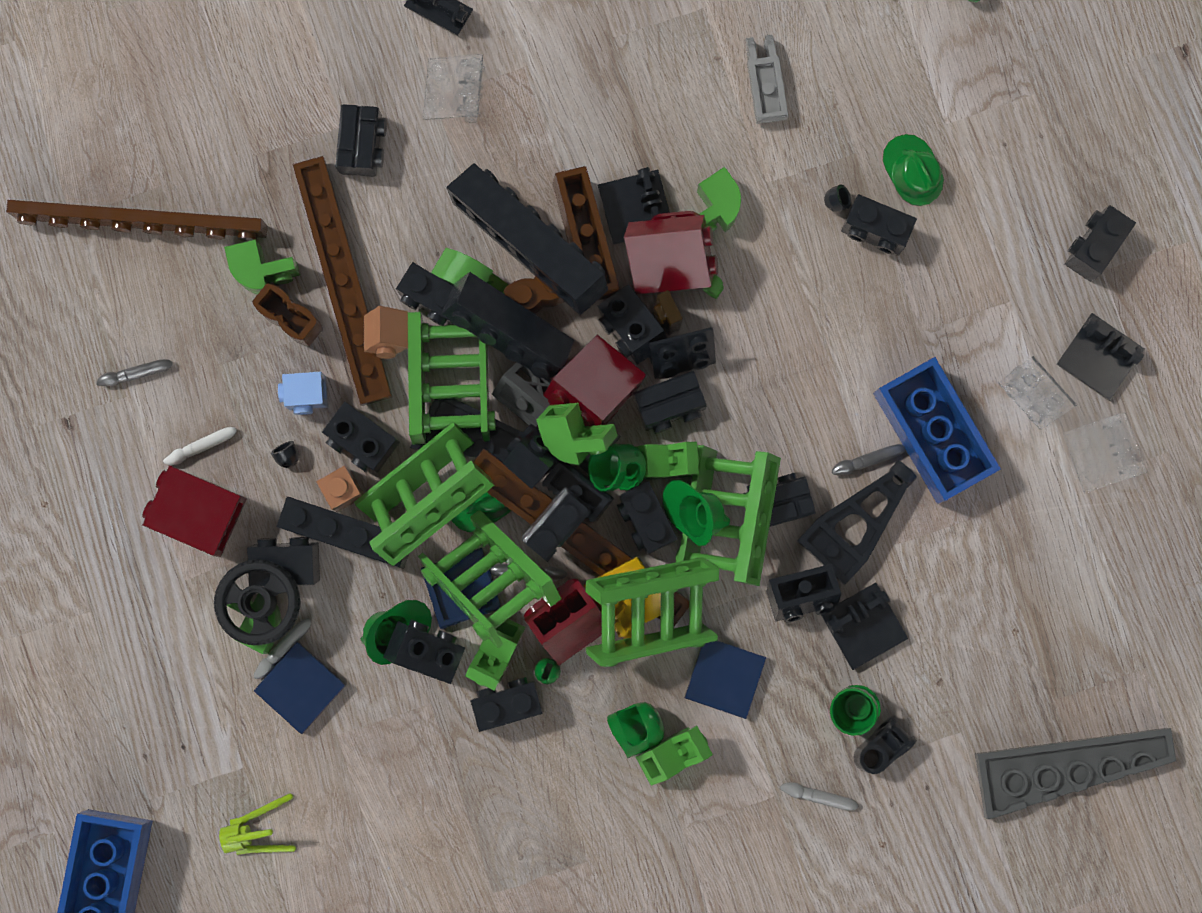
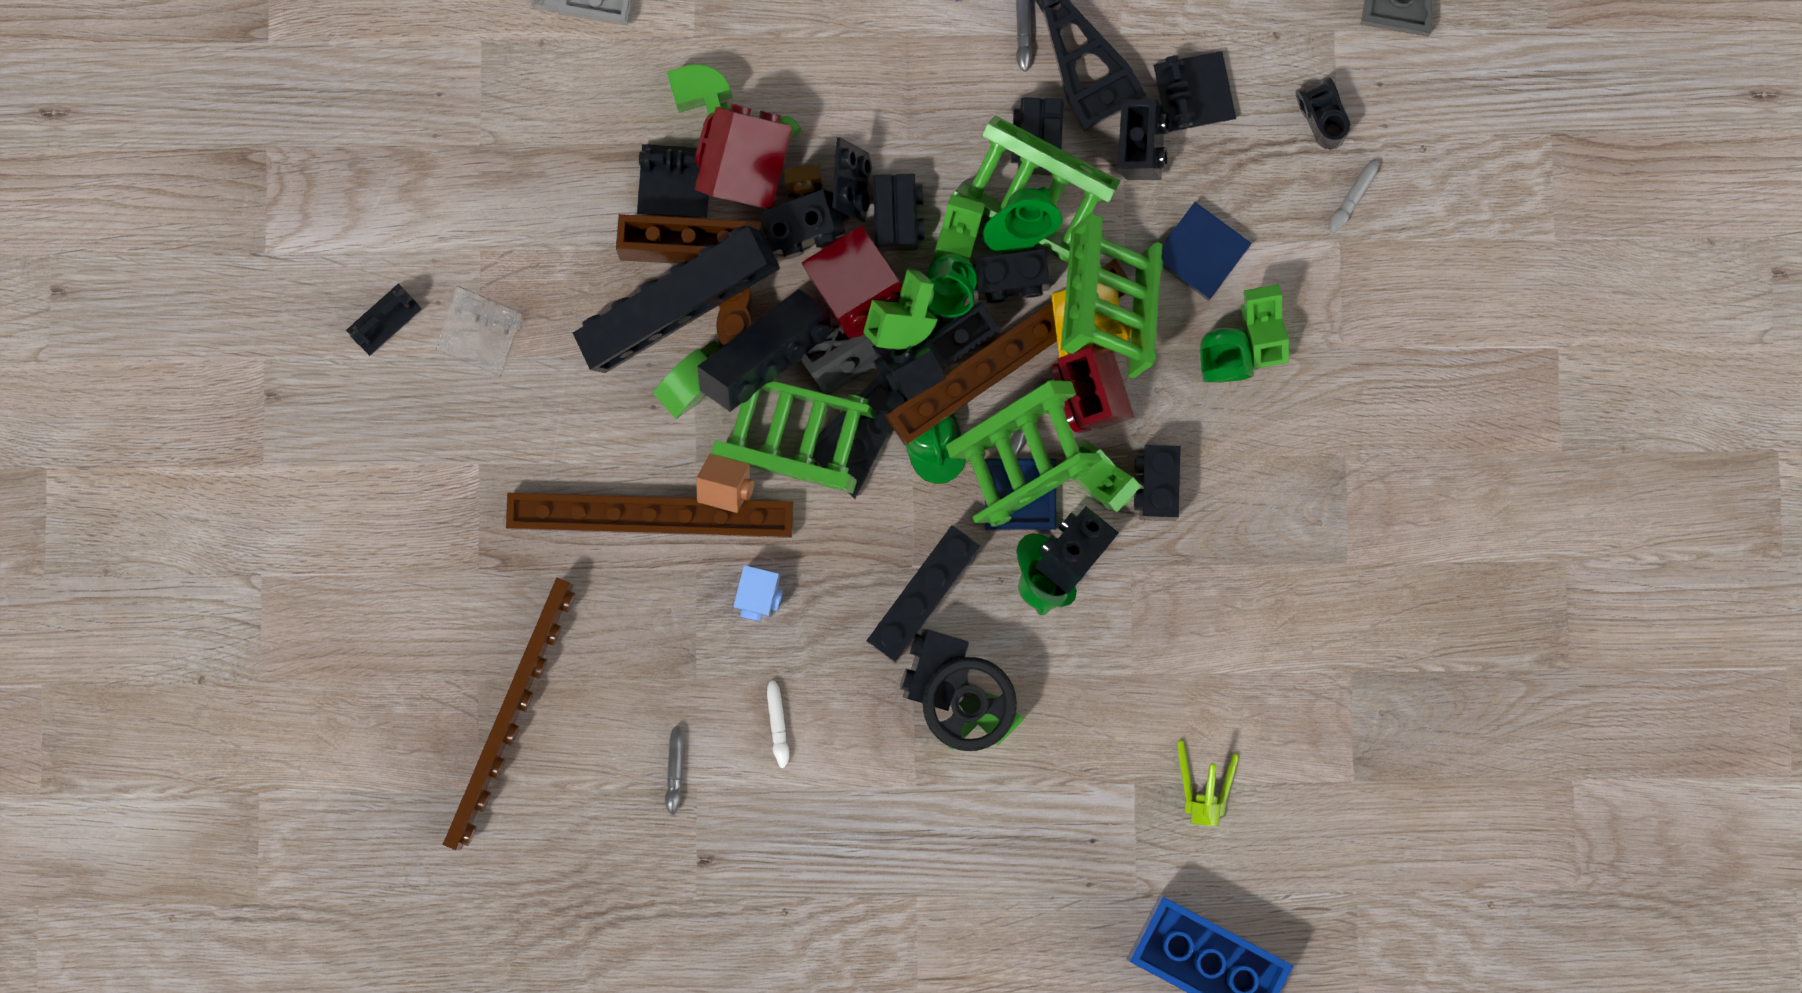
camera: 70 degrees left, 0 degrees up
(193, 511) = (847, 746): dark red brick -> none
(250, 270) = (611, 608): bright green brick -> none
(282, 648) = (1024, 705): light grey piece -> none
(286, 454) = (817, 633): black hinge -> none
(291, 317) = (661, 588): reddish brown brick -> none
(299, 687) = (1070, 696): dark blue tile -> none
(340, 488) = (875, 585): nougat brick -> none
(359, 140) = (504, 448): black brick -> none
(360, 438) = (827, 548): black brick -> none
(425, 291) = (698, 425): black brick -> none
(436, 508) = (937, 487): bright green fence -> none
(540, 669) = (1131, 437): green hinge -> none
(556, 523) = (990, 364): black brick -> none
(860, 702) = (1273, 120): green helmet -> none

